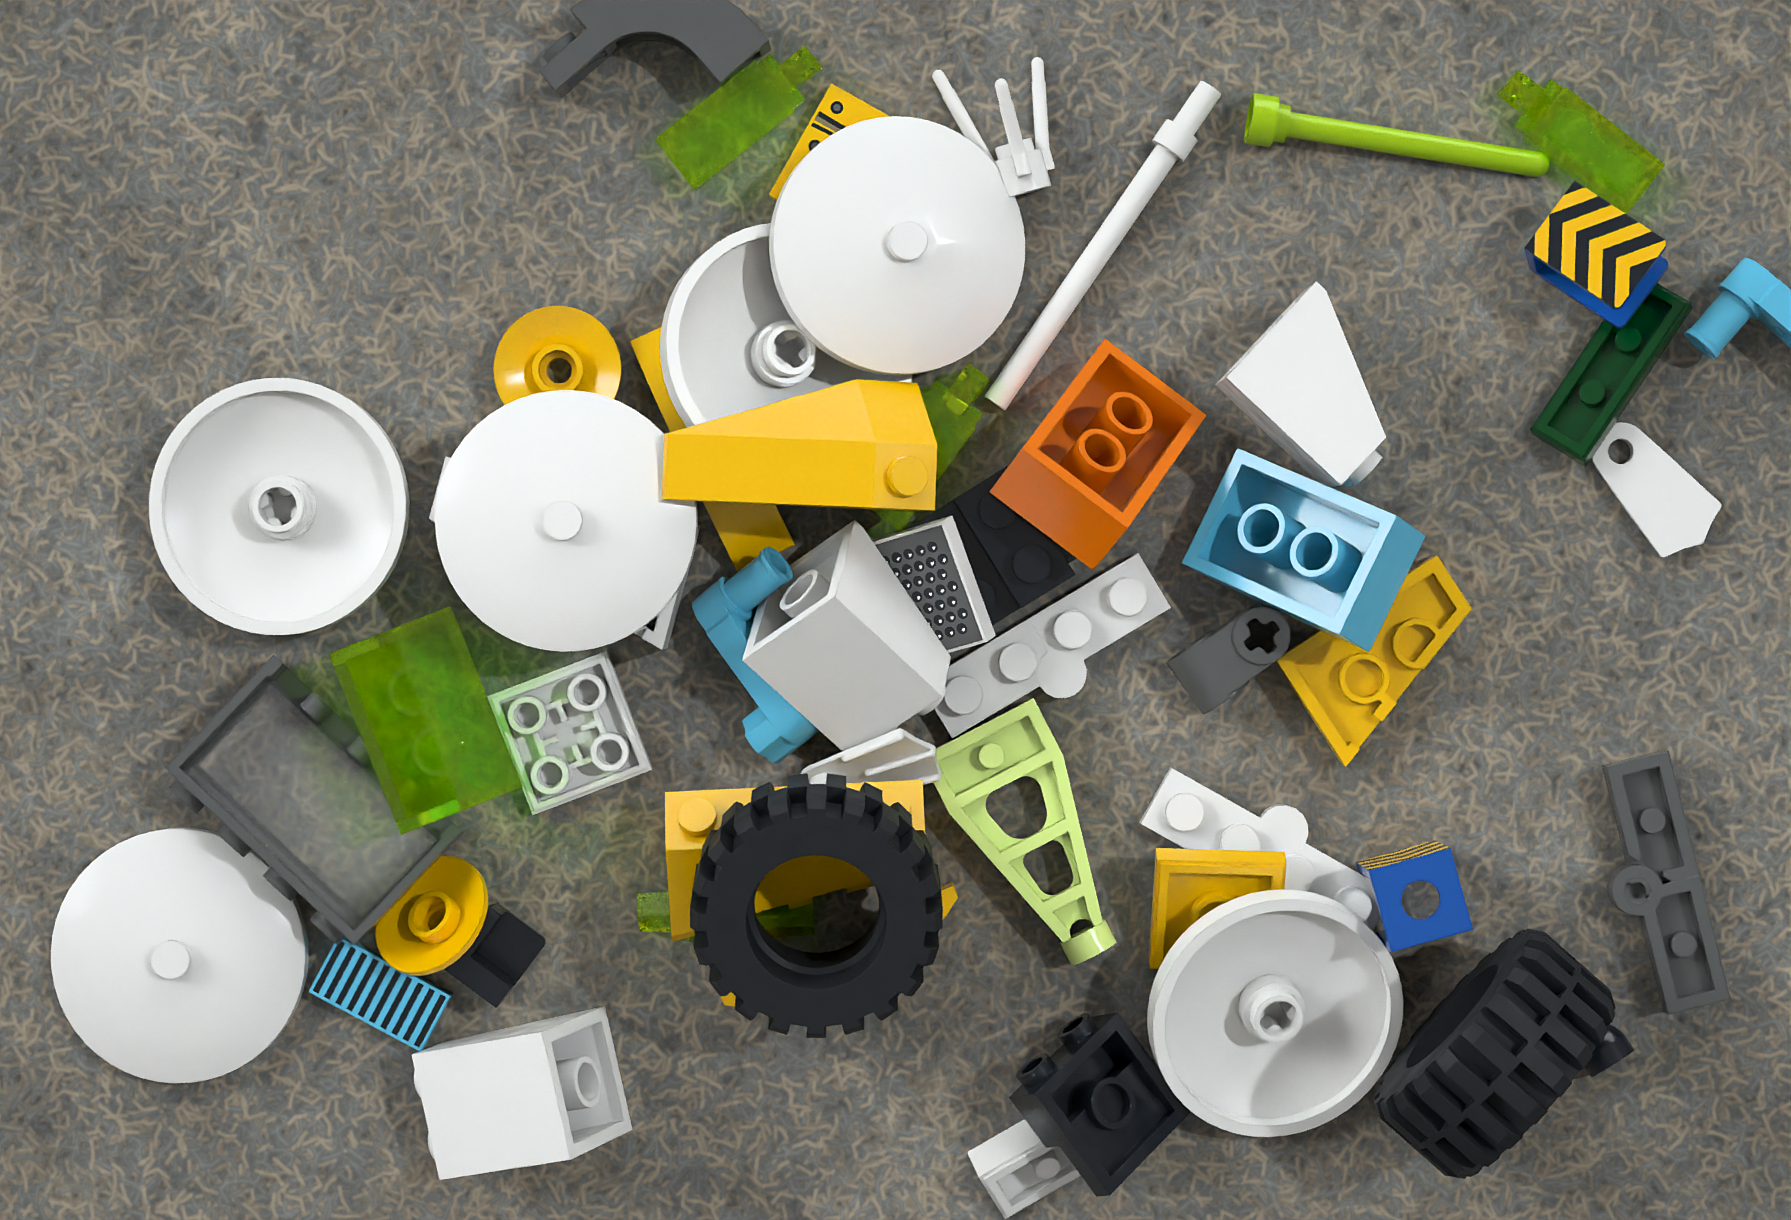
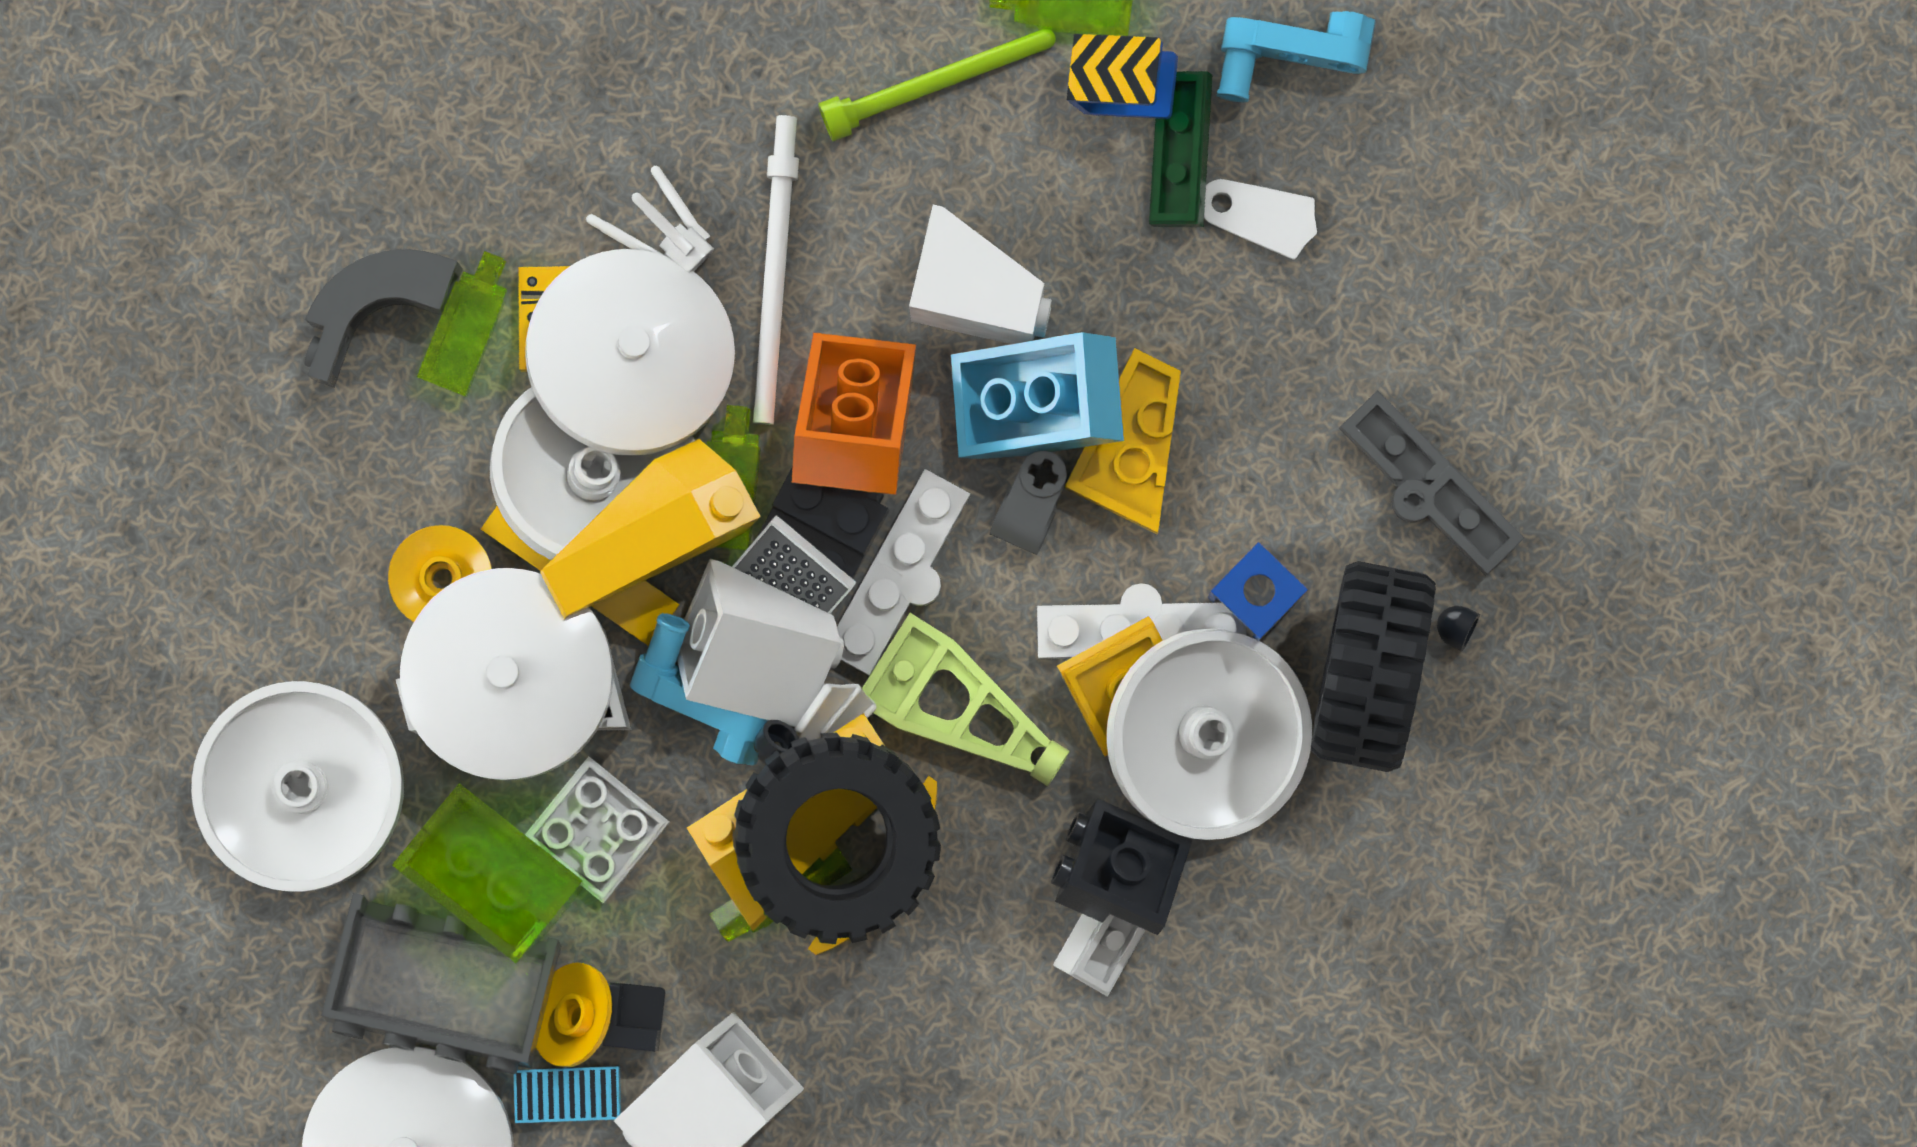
camera: 20 degrees left, 5 degrees down
(811, 749) = (772, 737): none -> black hinge

